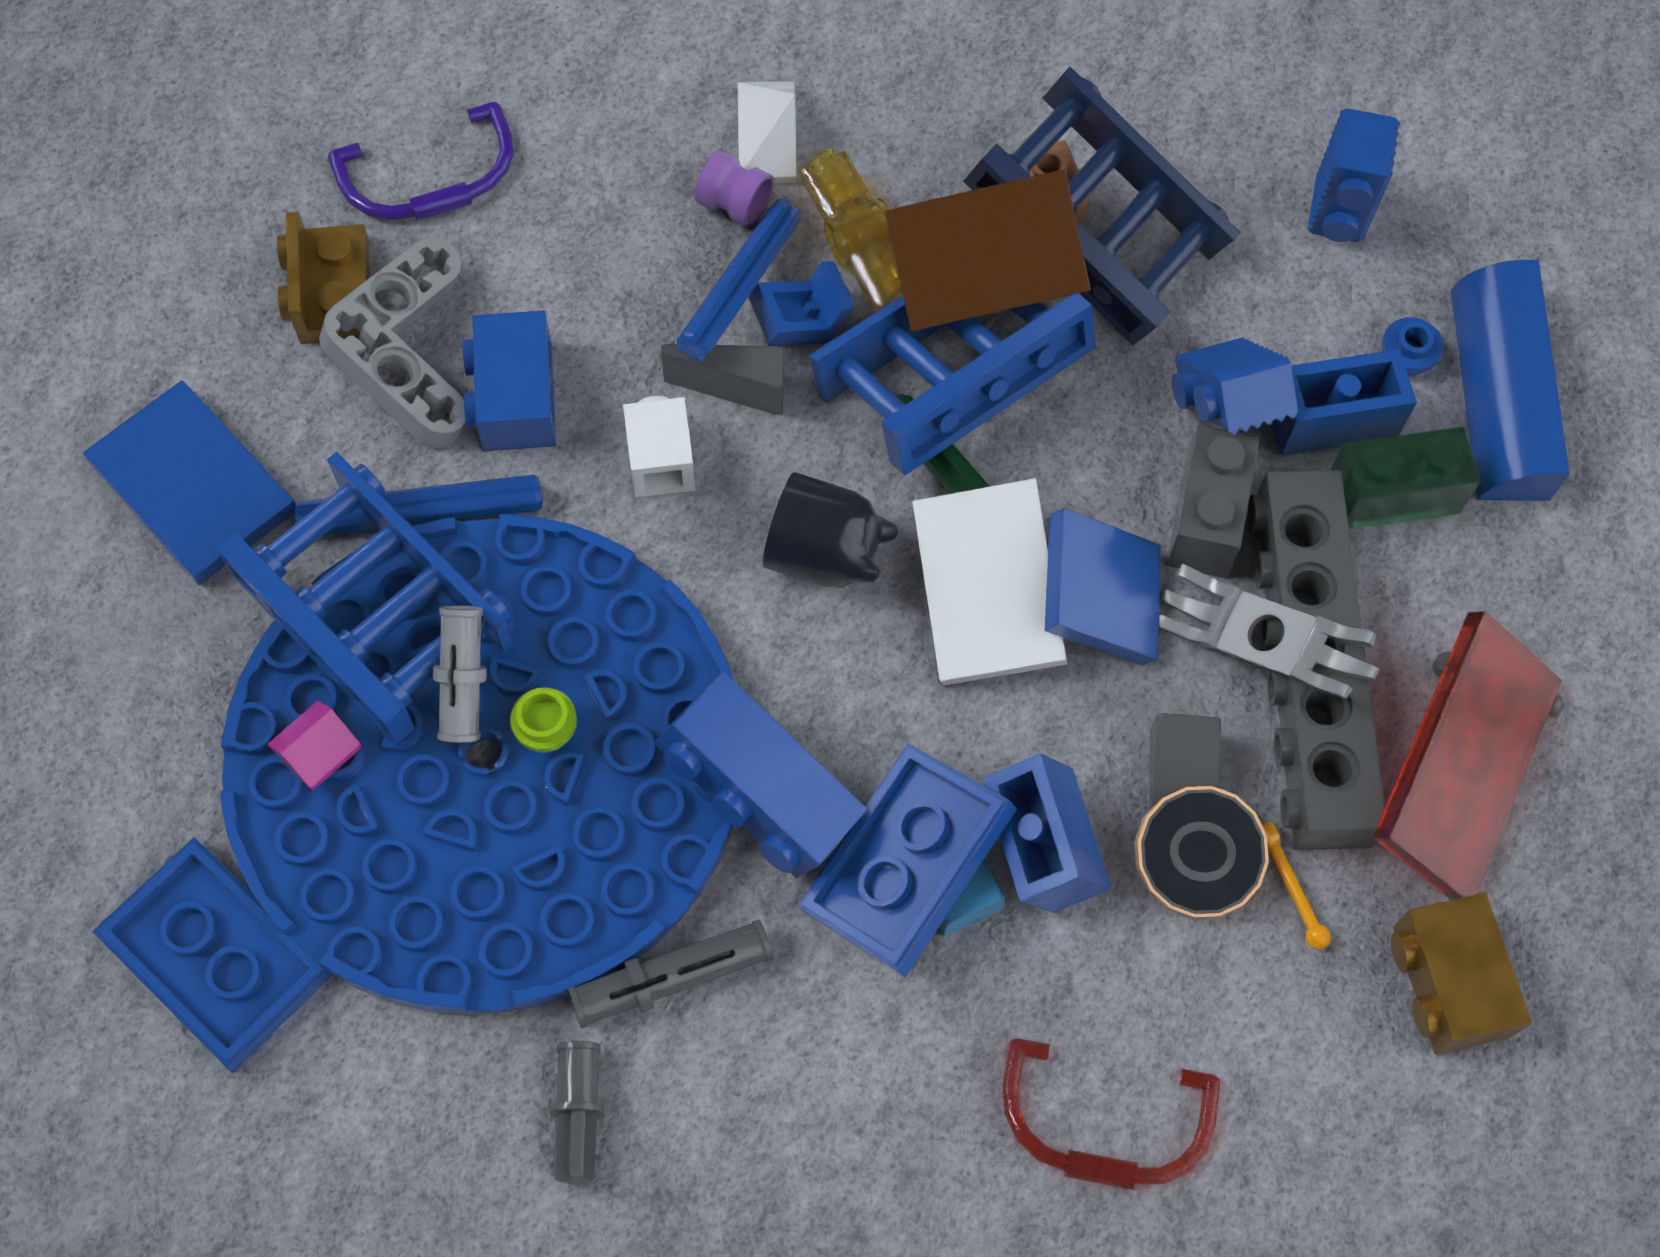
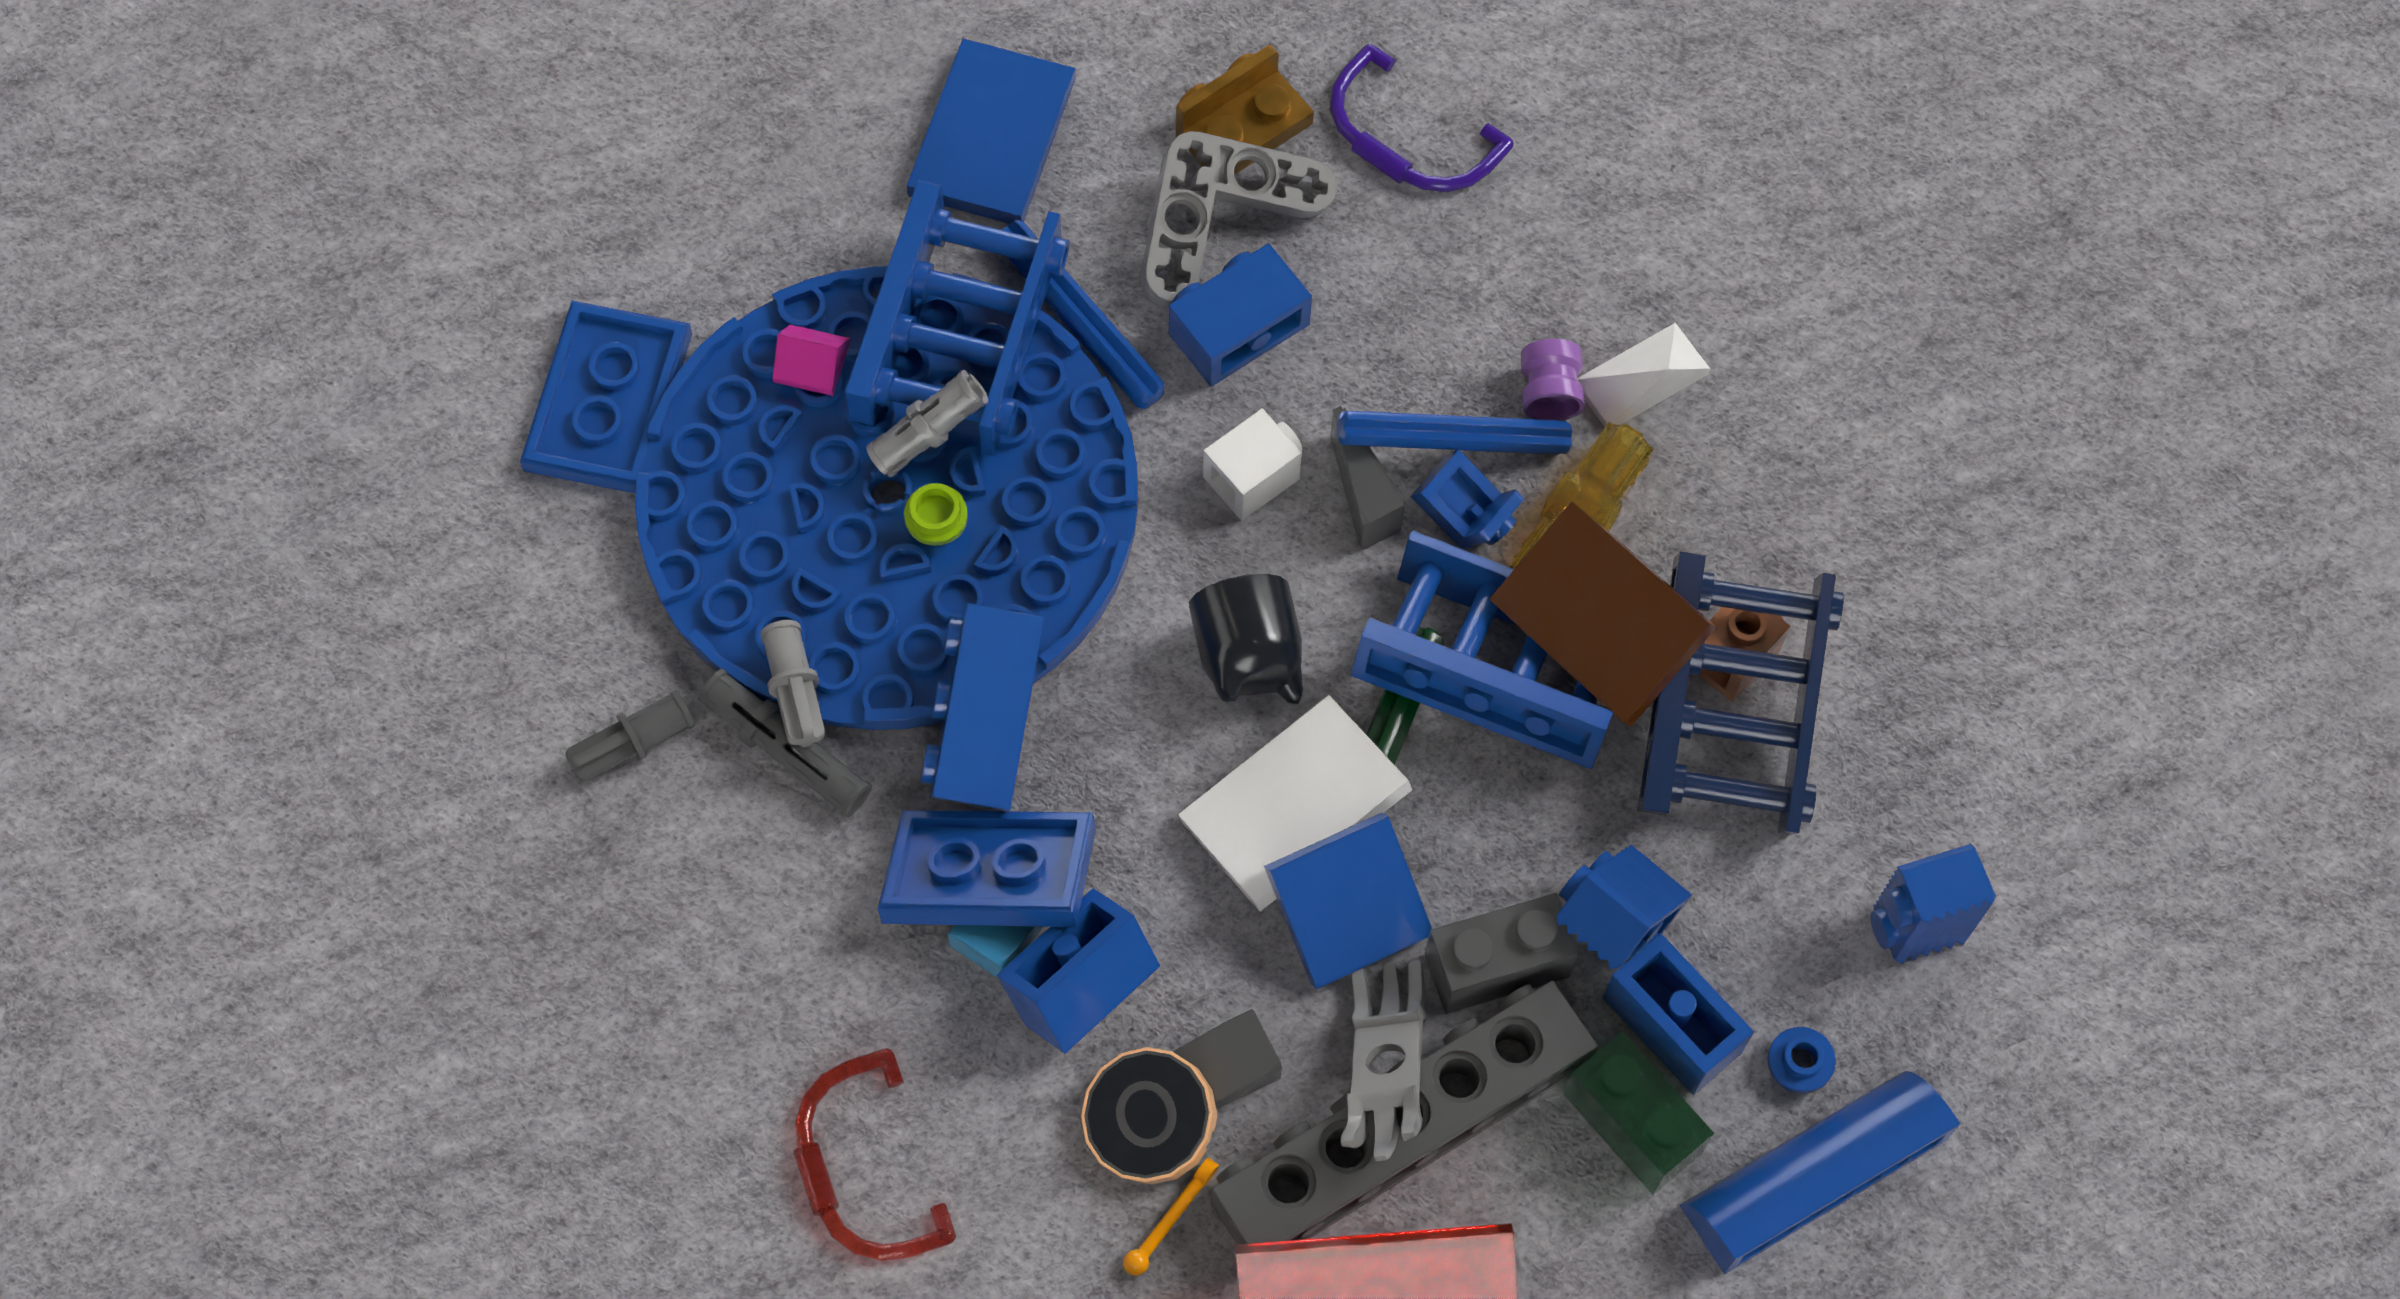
camera: 60 degrees right, 0 degrees up
(631, 929) = (793, 682): none -> light grey axle

